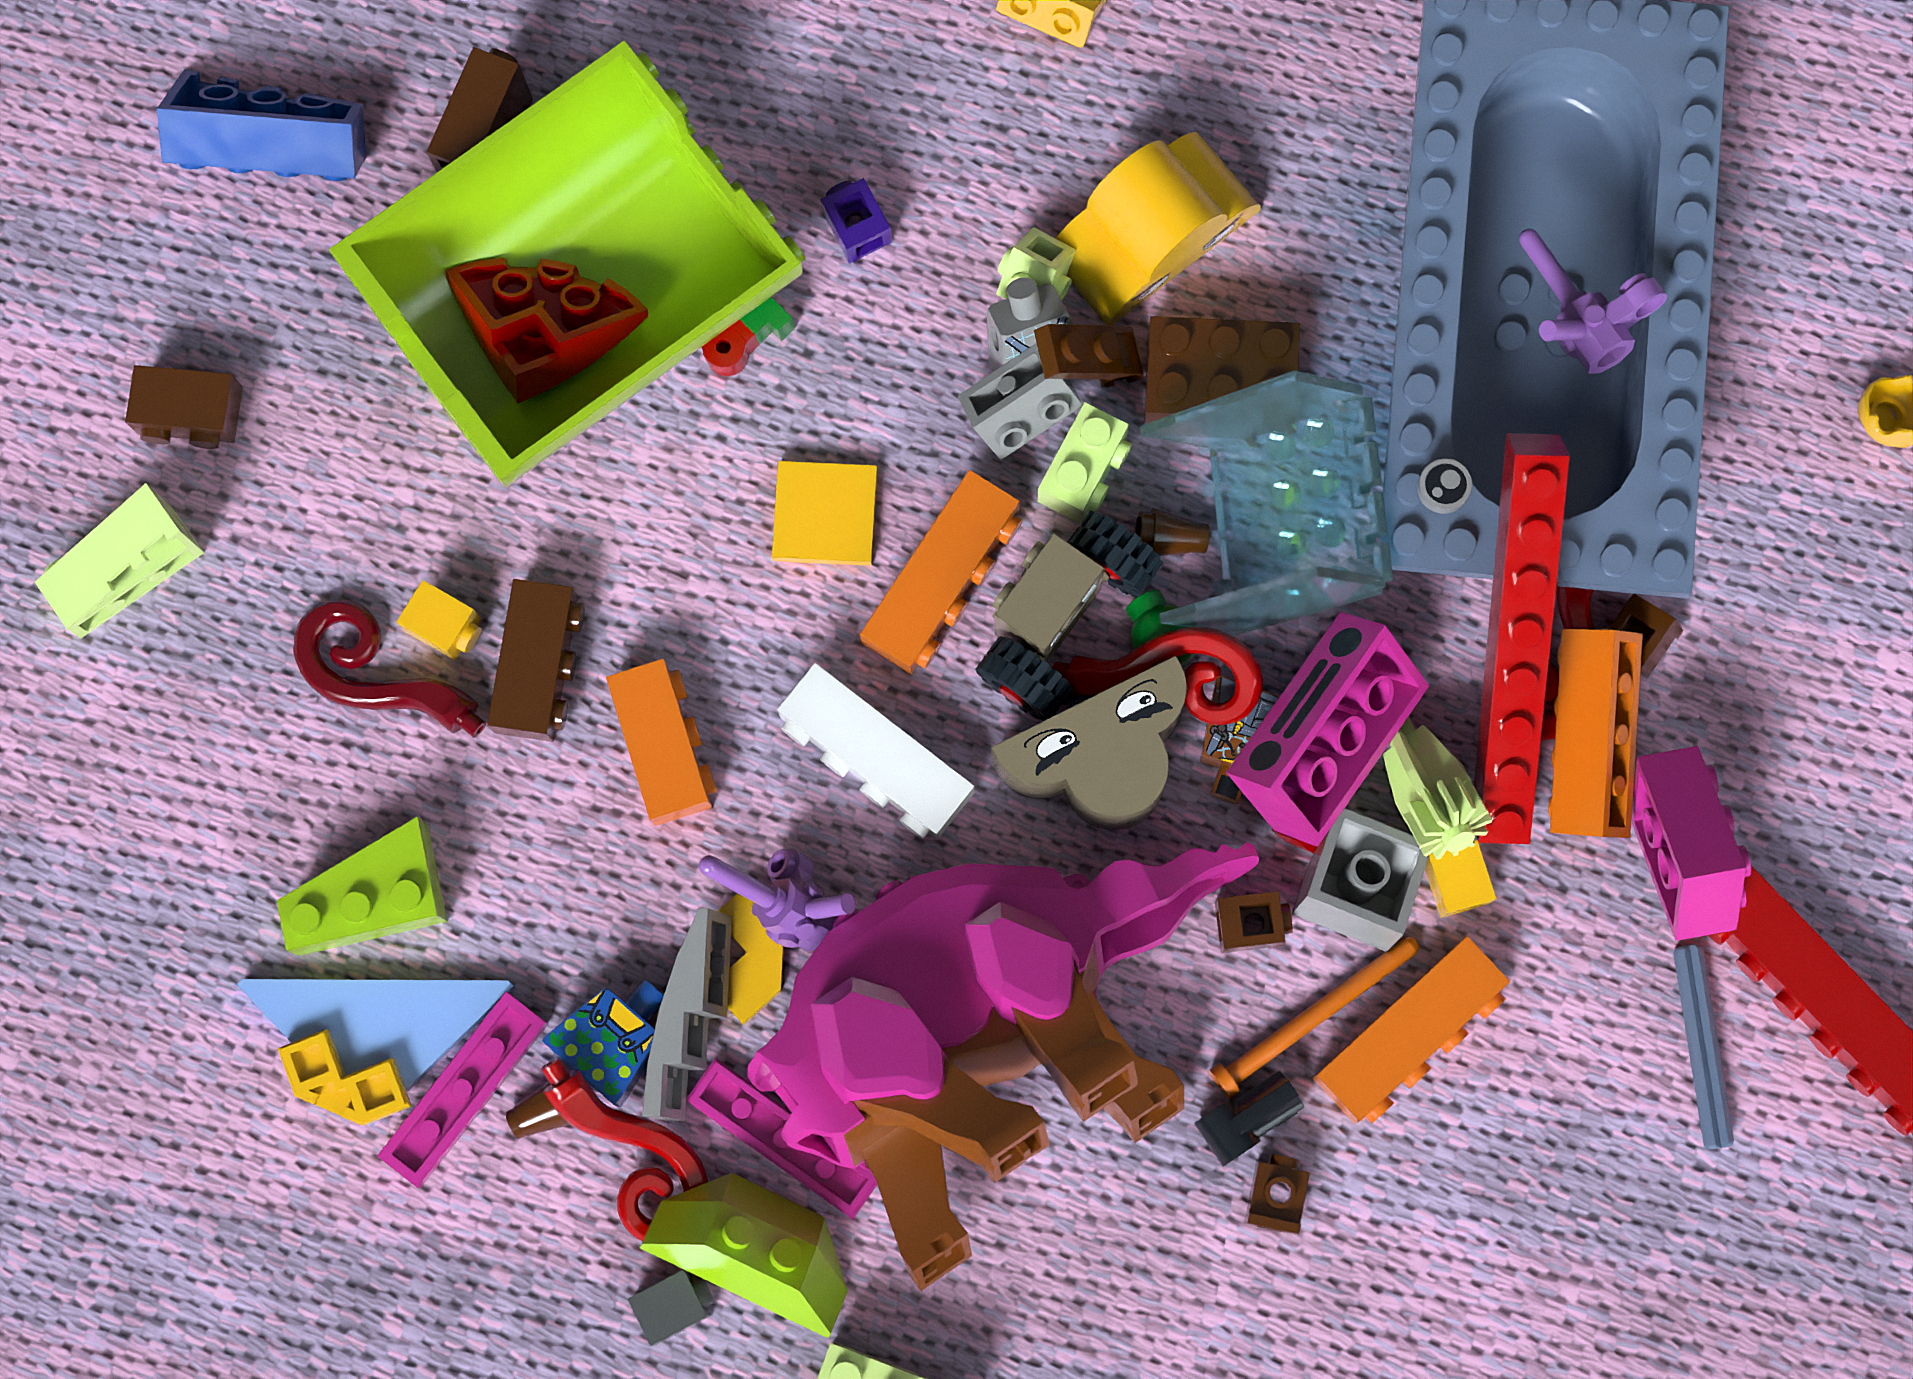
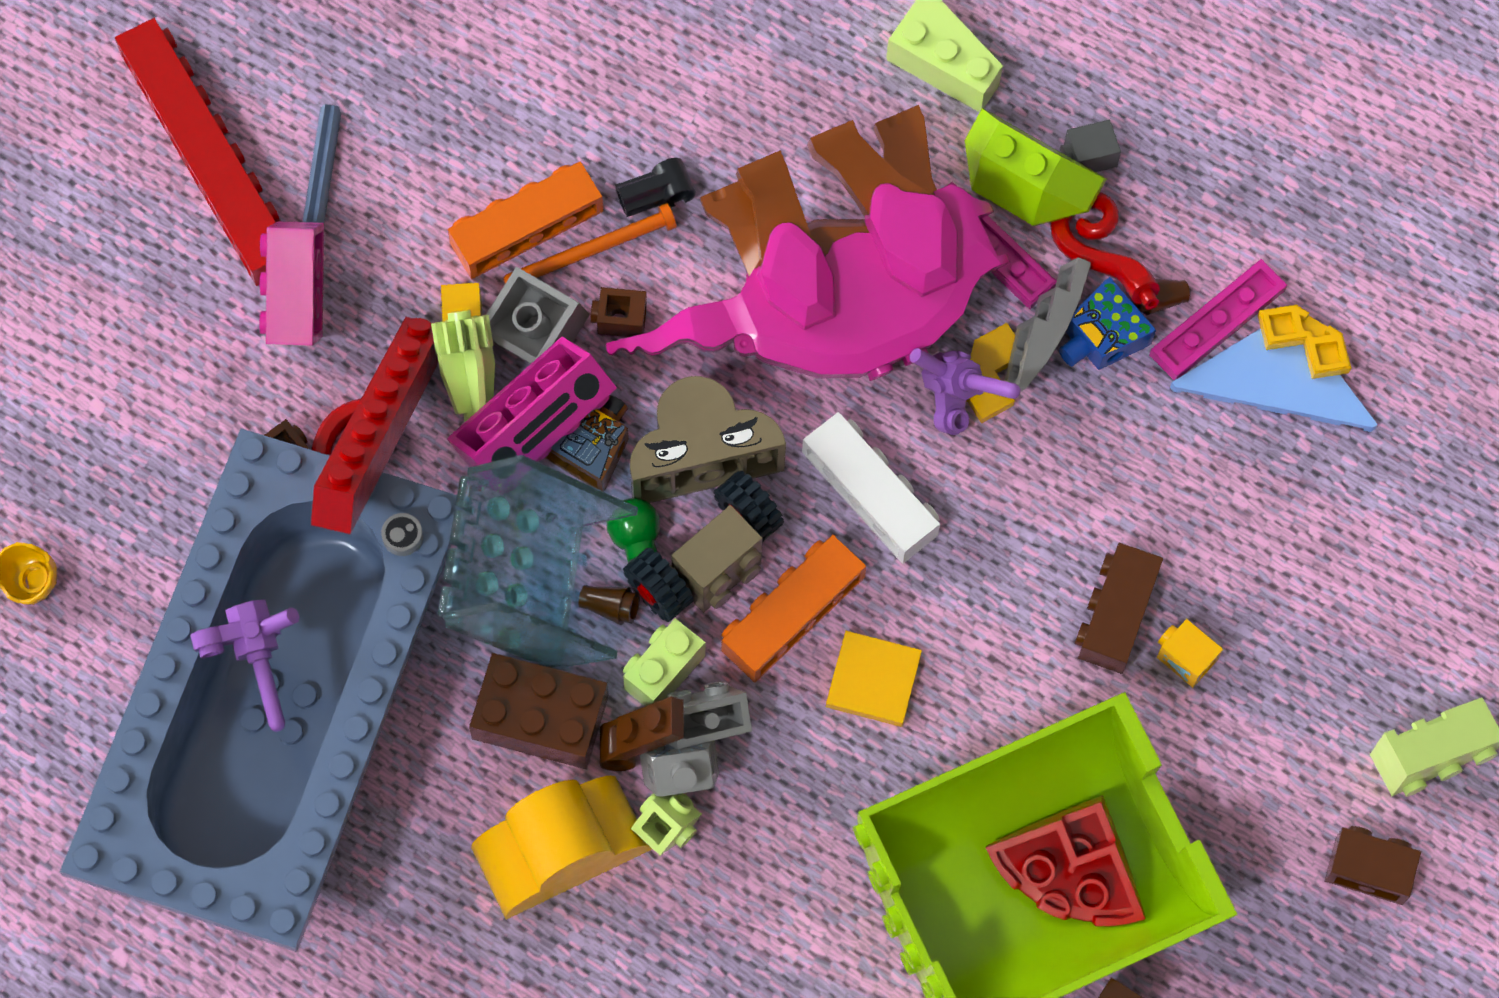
camera: 175 degrees left, 10 degrees down
(368, 895) = (1271, 460): lime wedge -> none
(435, 698) = (1202, 600): dark red plant -> none
(661, 741) = (1031, 528): orange brick -> none
(865, 236) = (807, 888): dark purple brick -> none
(1094, 675) = (681, 501): red plant -> none
(1263, 1210) = (654, 120): reddish brown brick -> none
(1595, 733) = (334, 378): orange brick -> none

